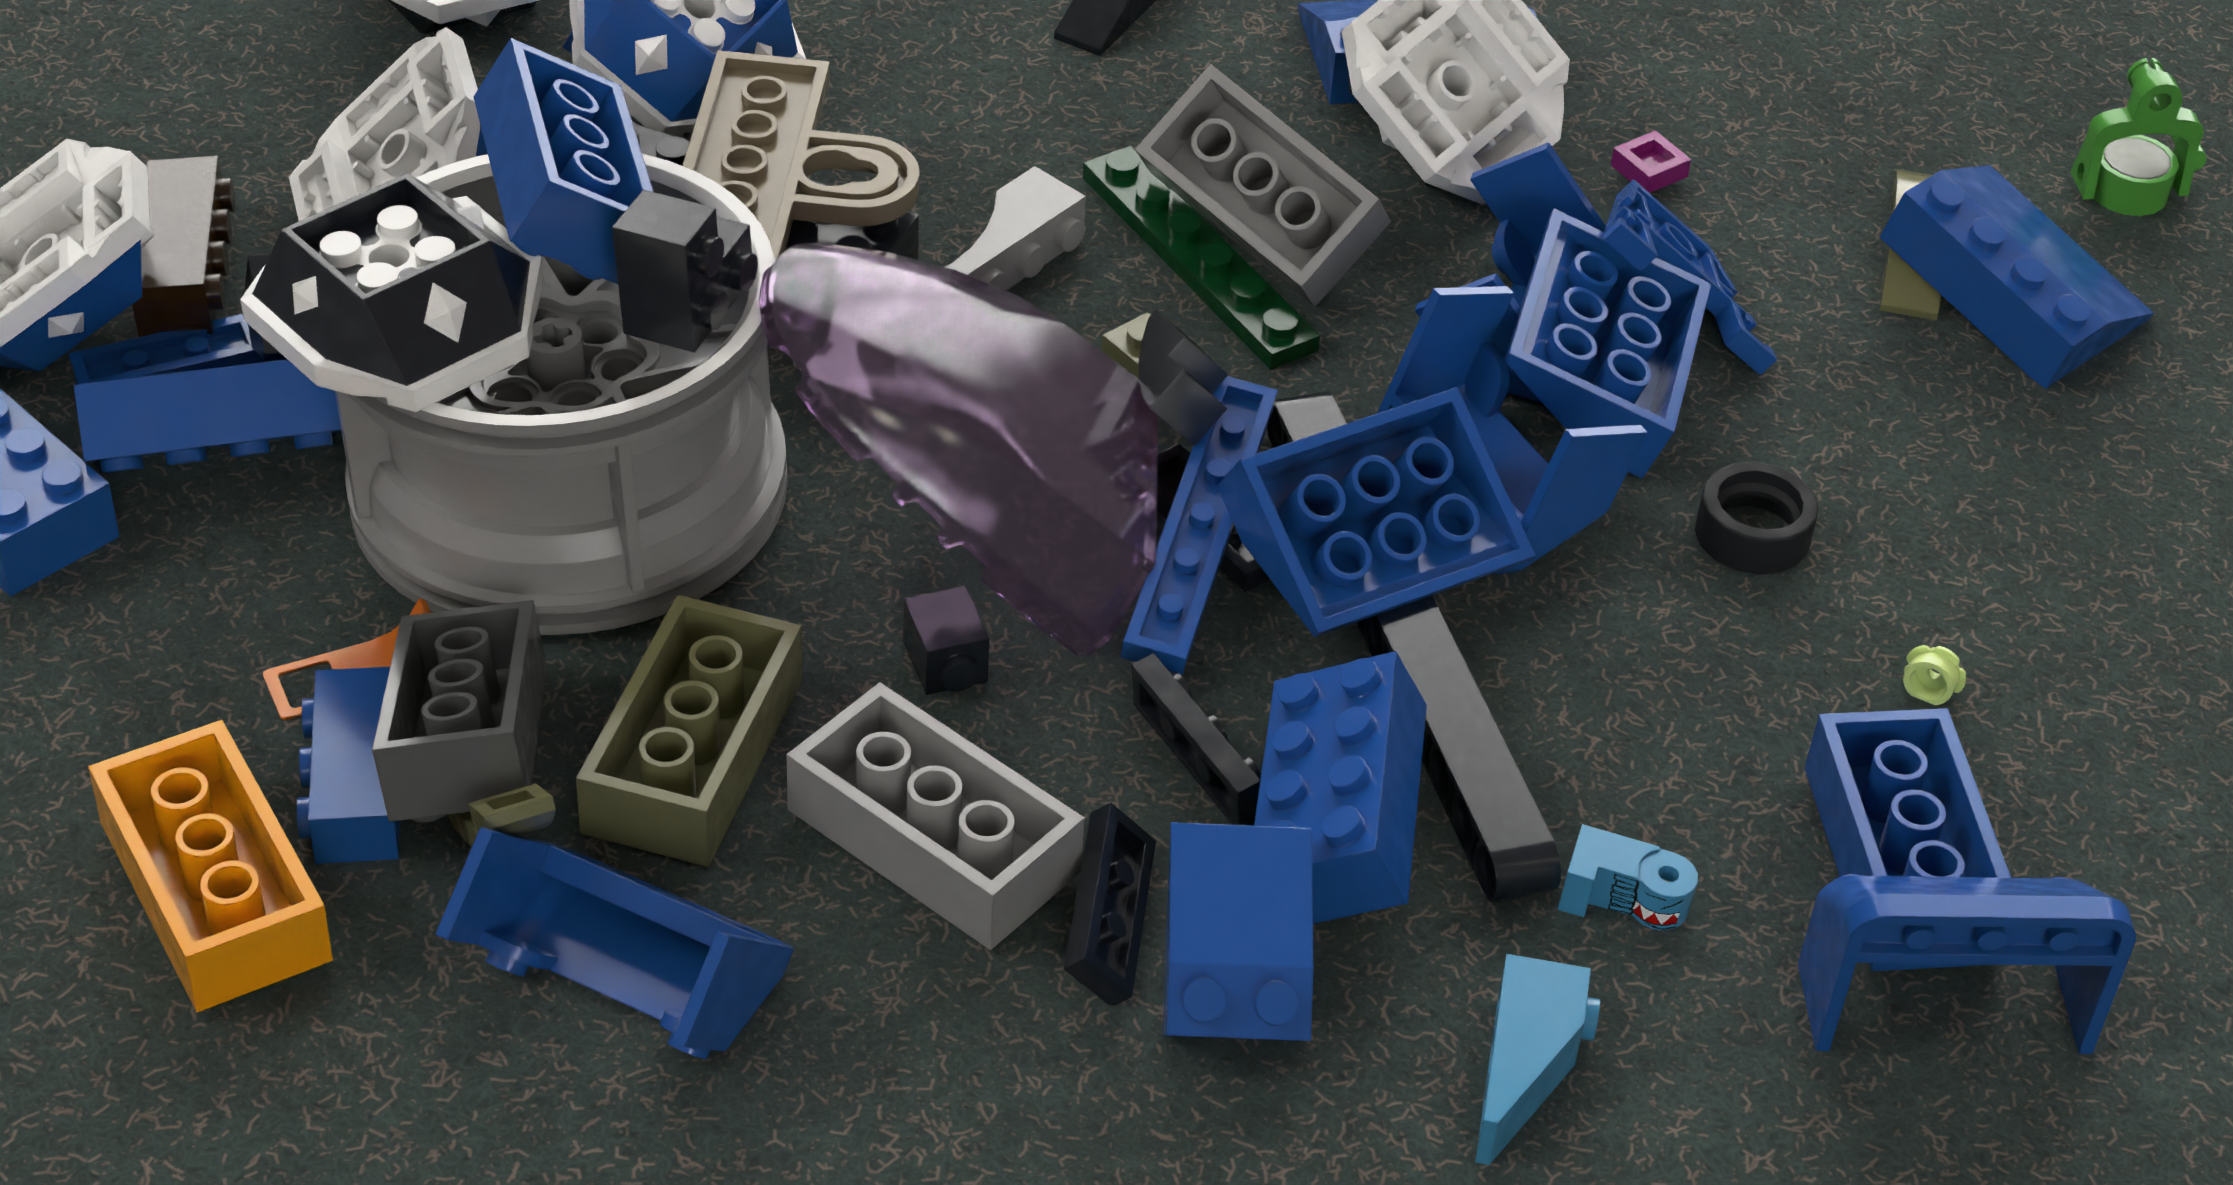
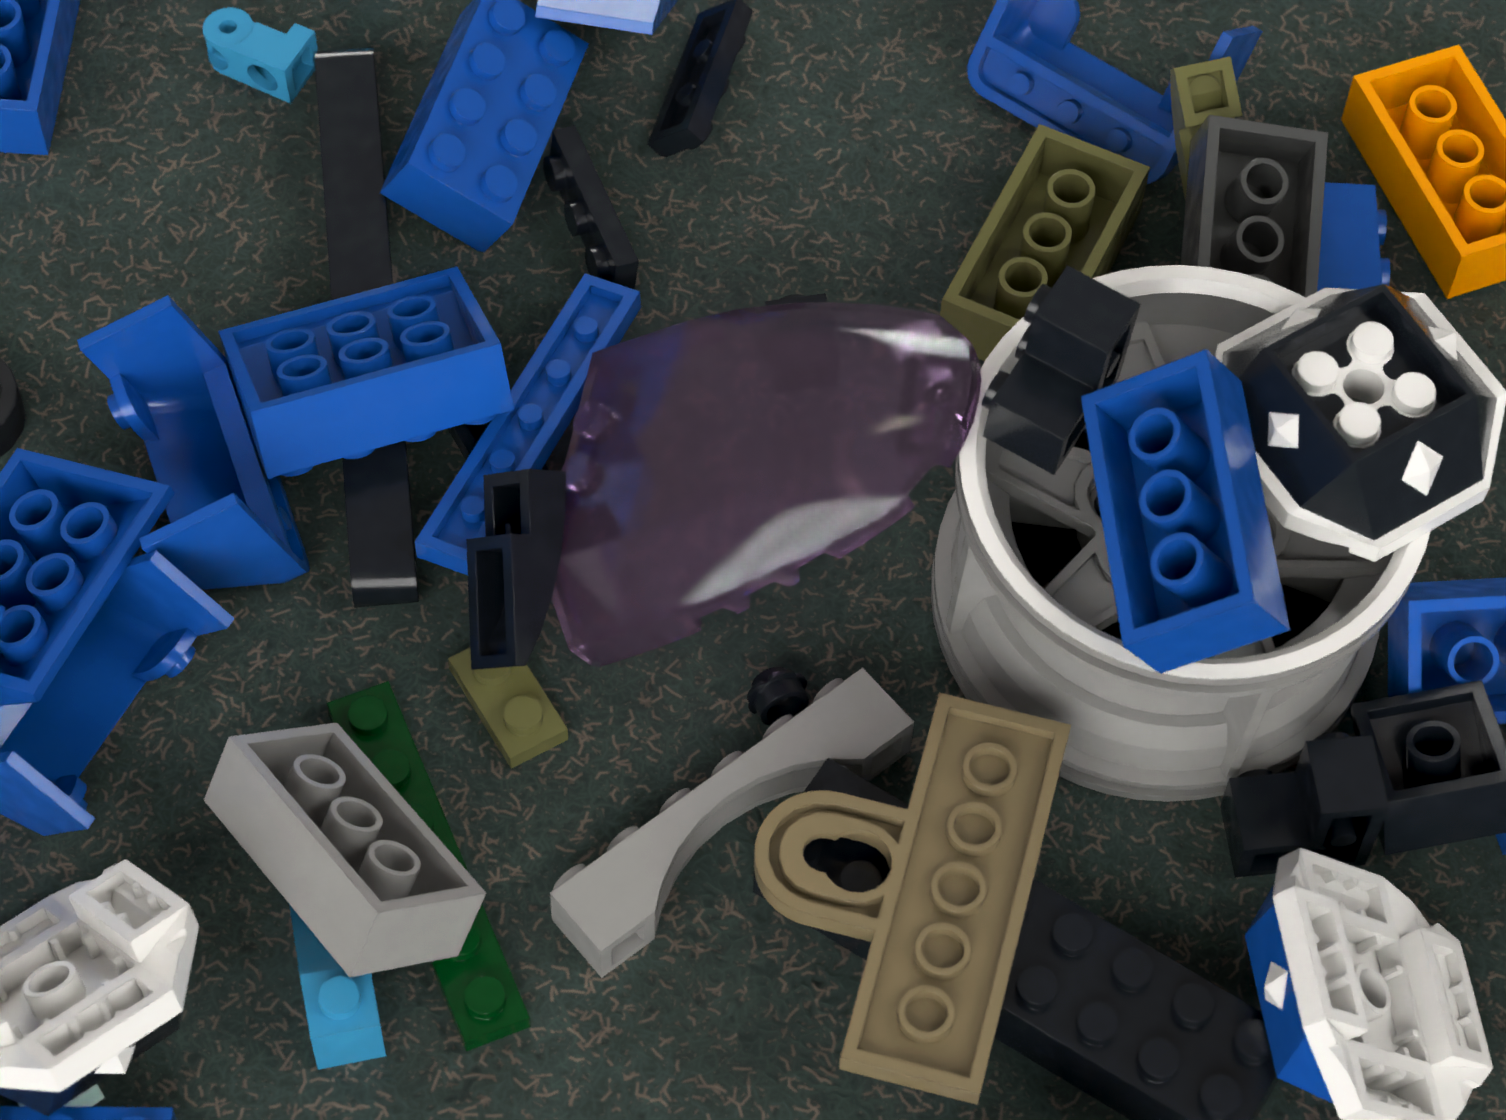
camera: 170 degrees left, 15 degrees up
(935, 814) = (840, 149): light grey brick -> none

